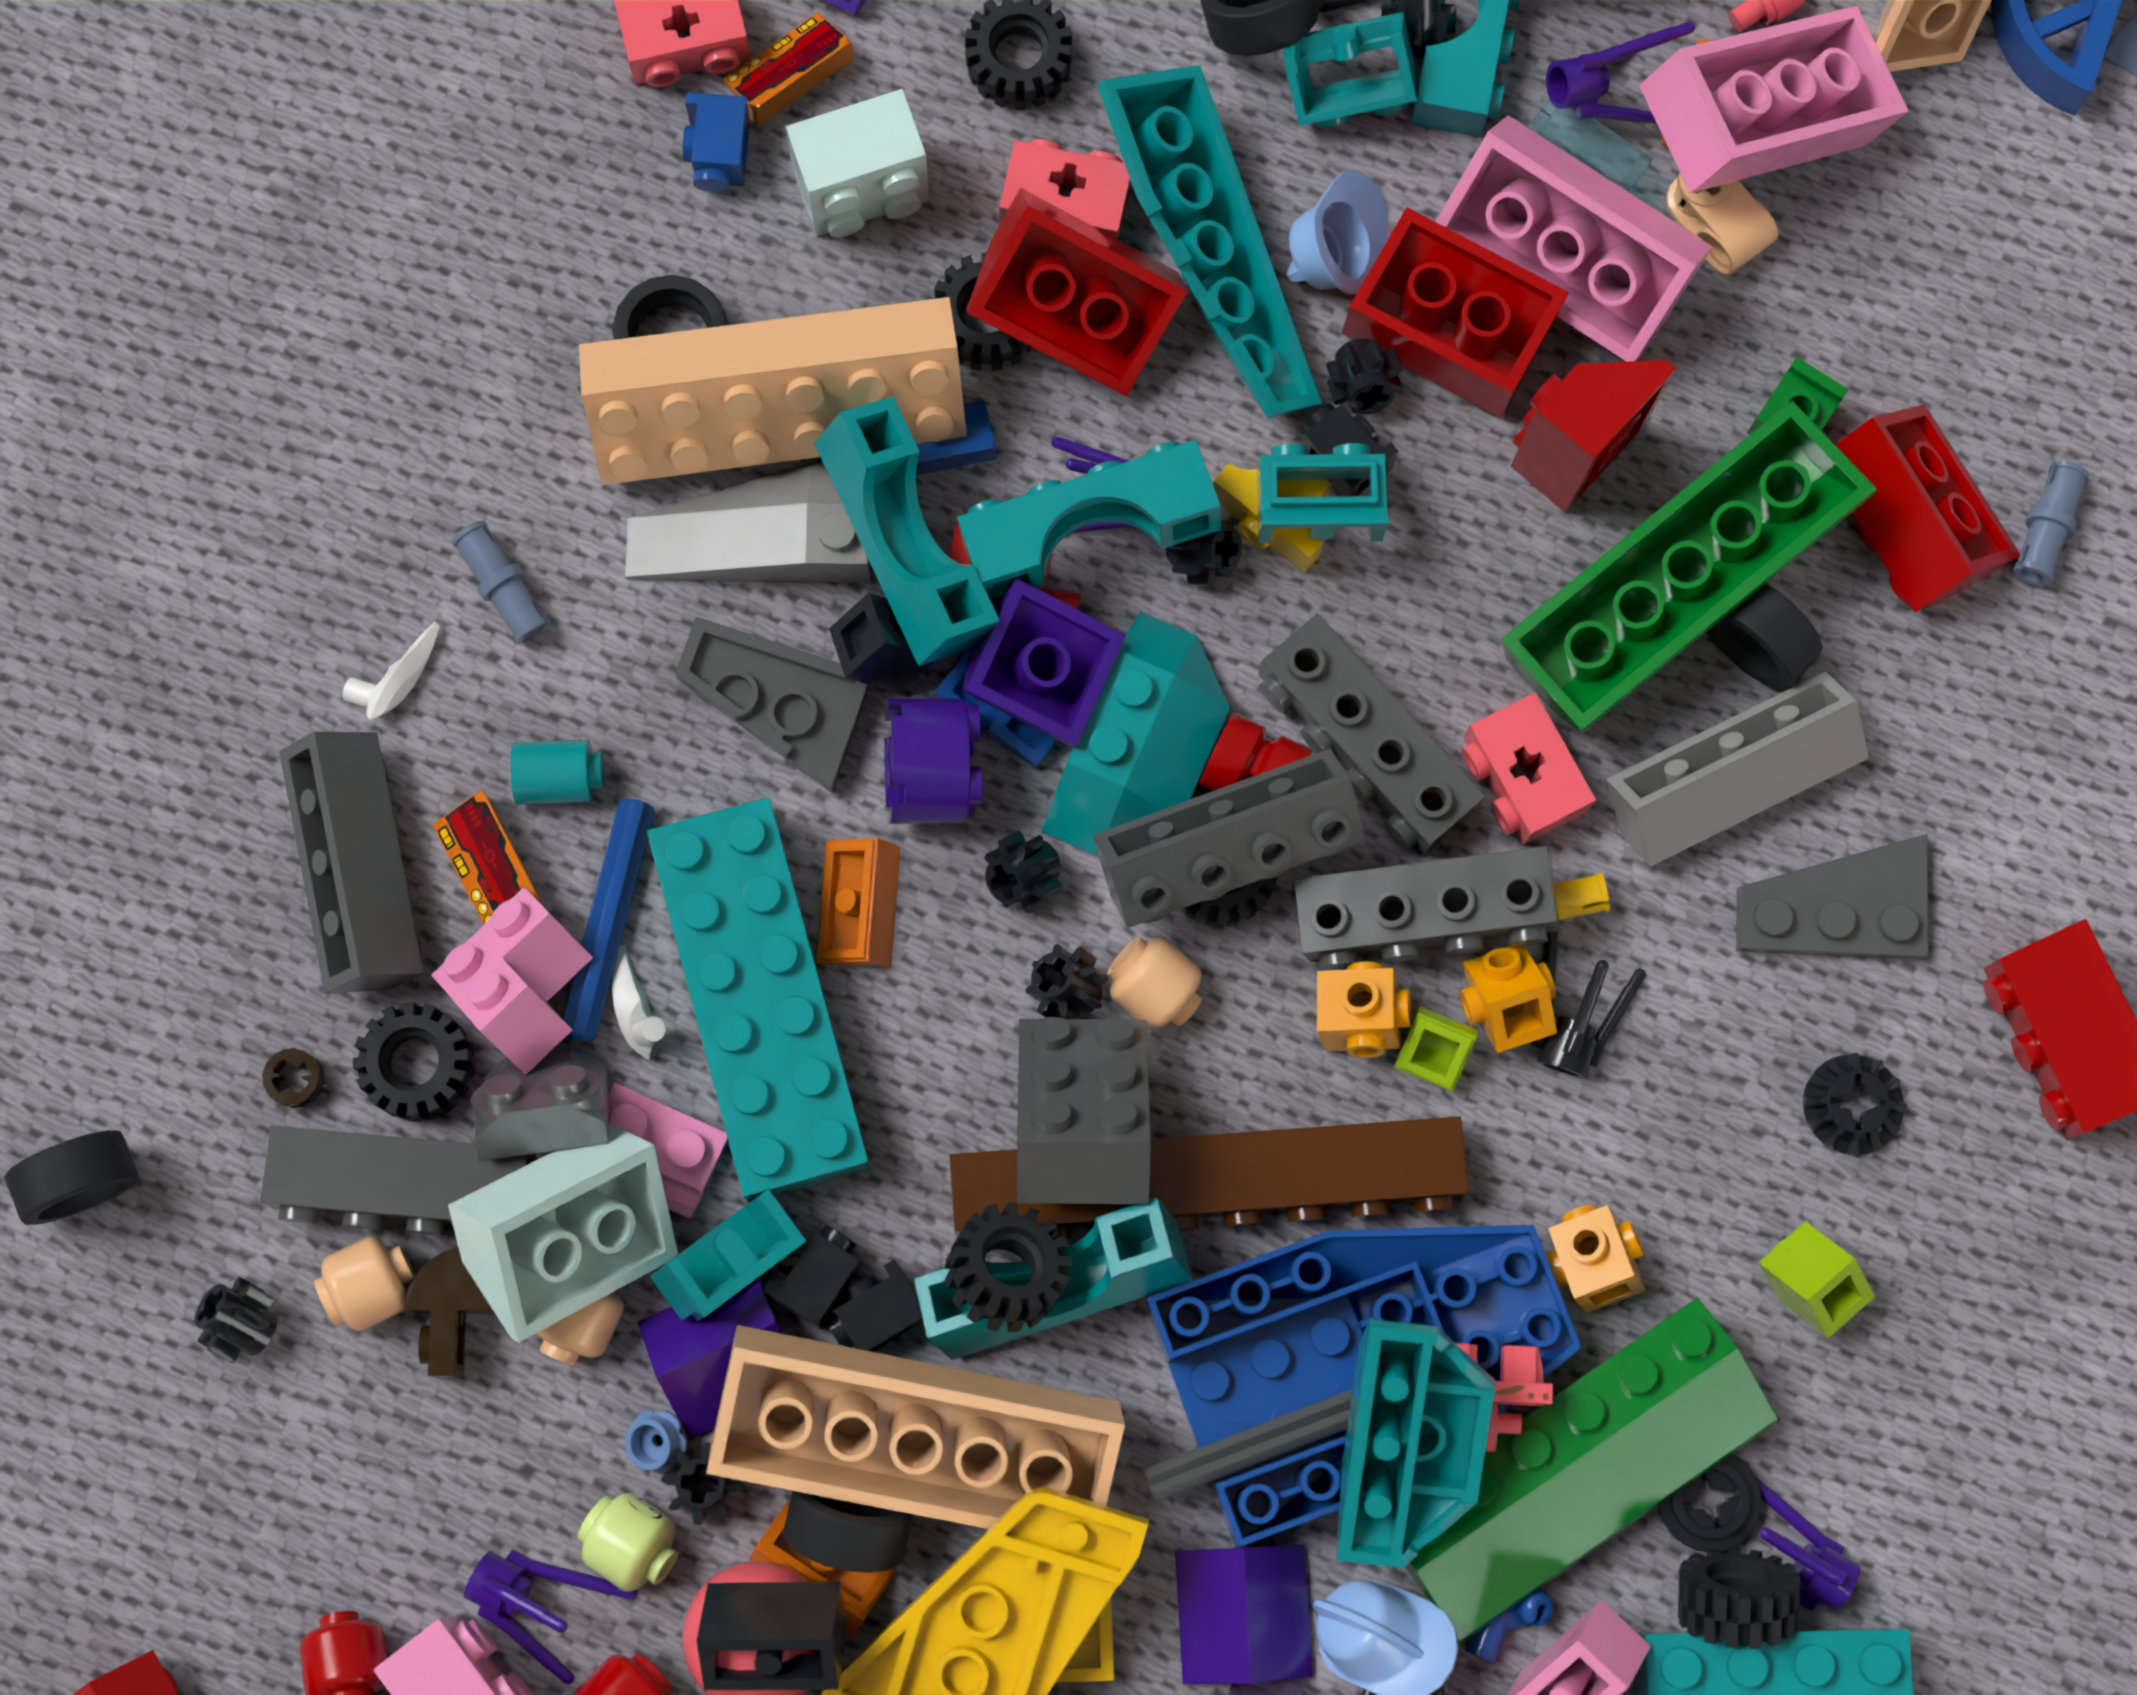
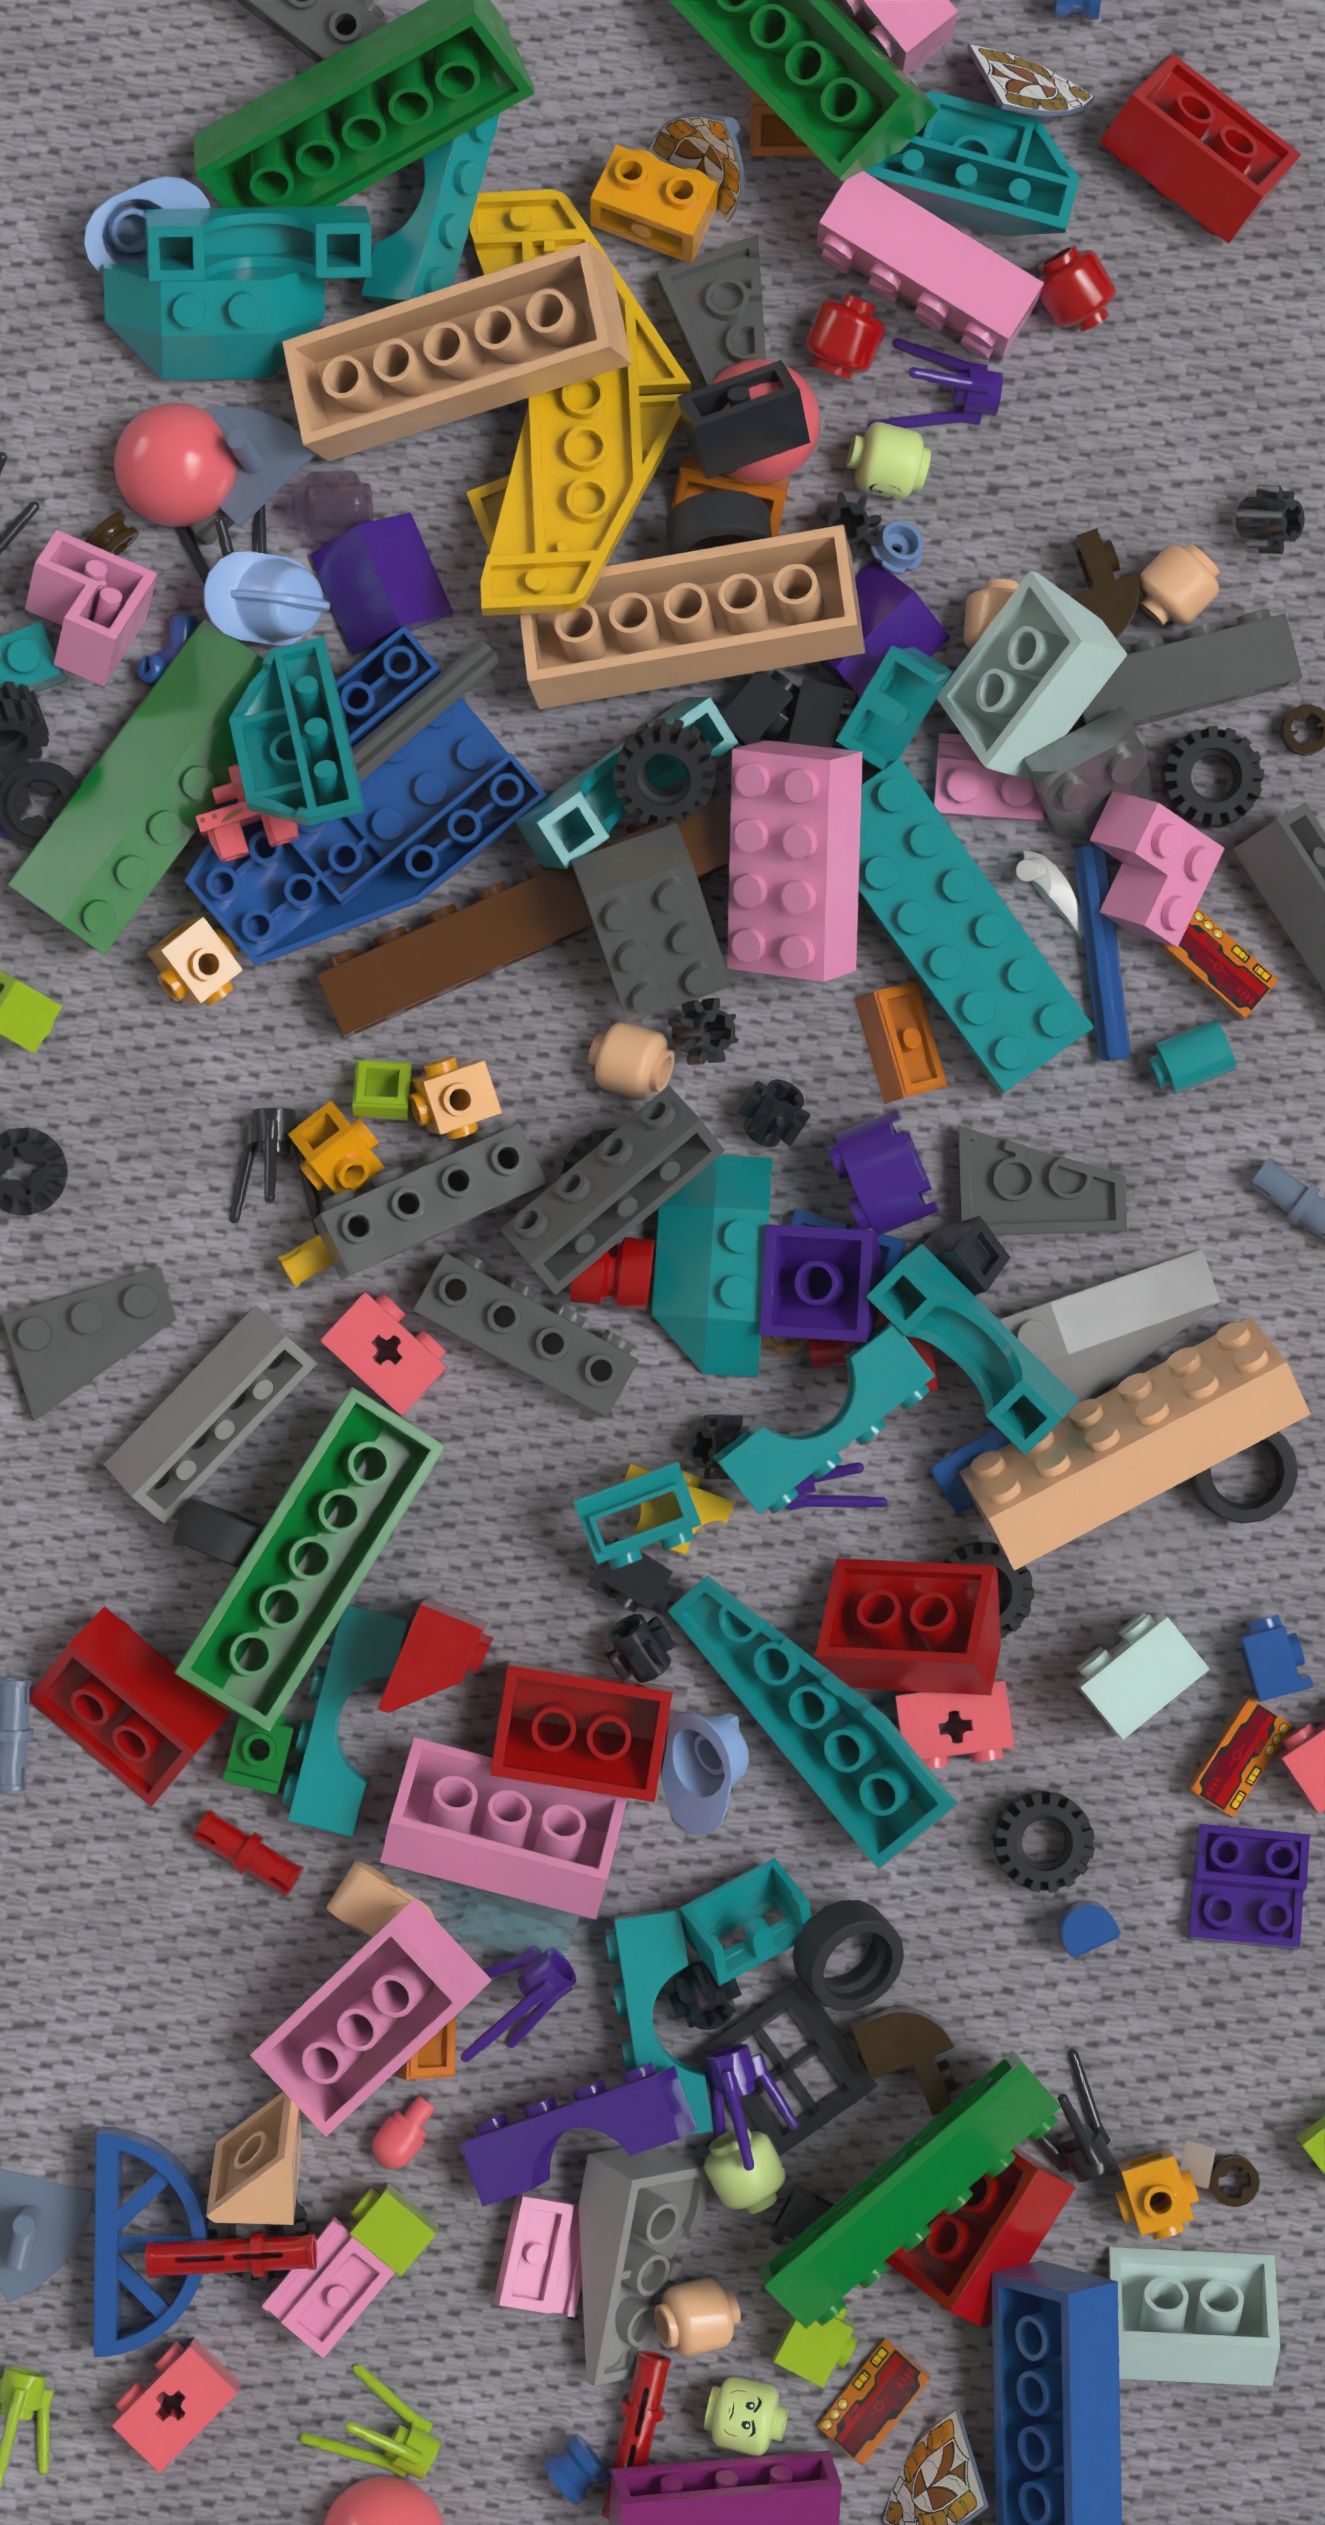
camera: 160 degrees right, 10 degrees up
(900, 1123) = (794, 860): none -> bright pink brick
(1731, 355) = (329, 1787): none -> teal arch
(1840, 319) = (247, 1853): none -> red pin

